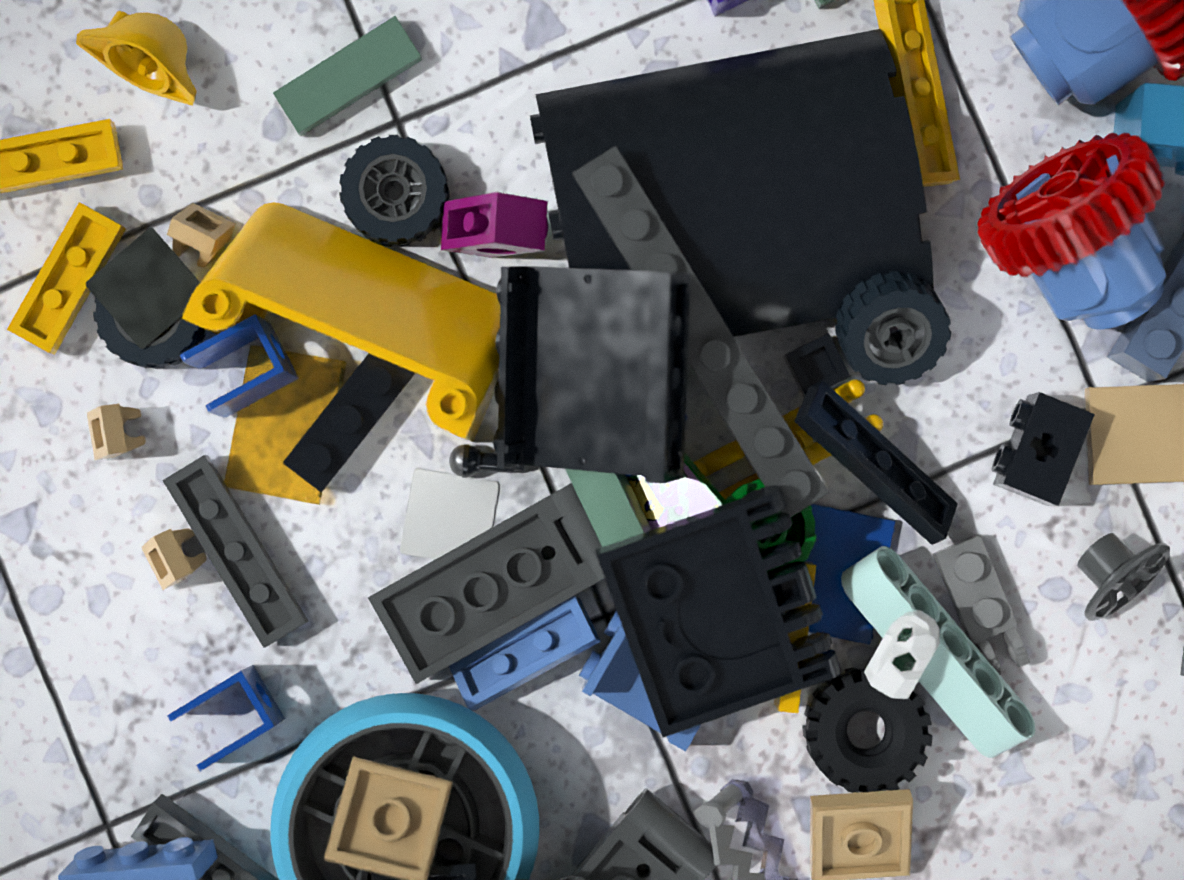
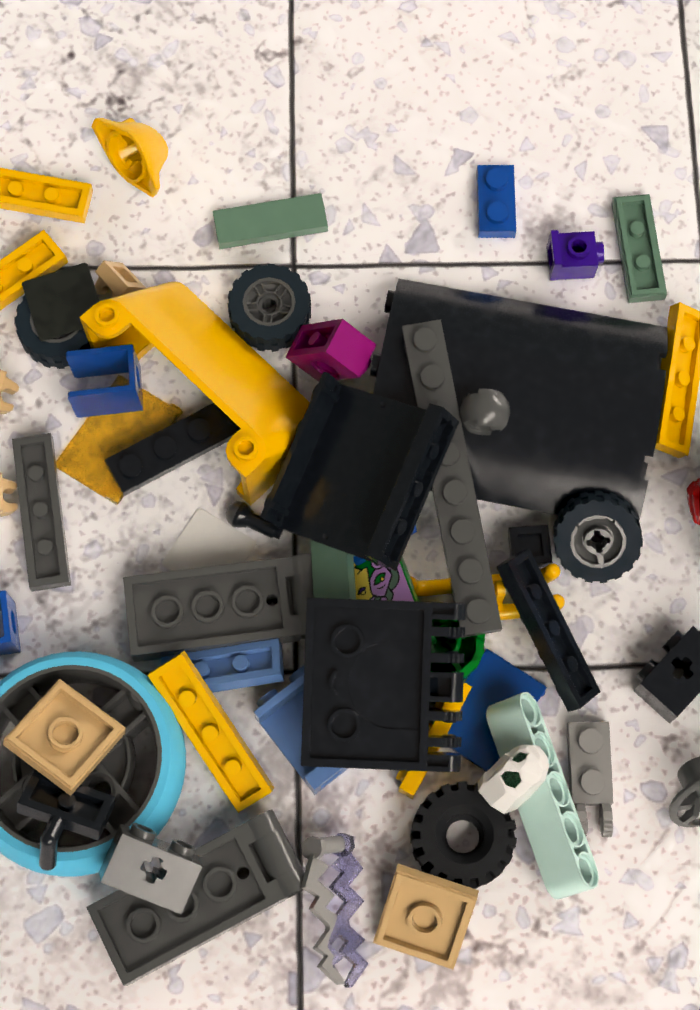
camera: 20 degrees right, 15 degrees down
(542, 731) = (211, 731): none -> yellow plate
(712, 242) = (484, 412): none -> dark grey piece

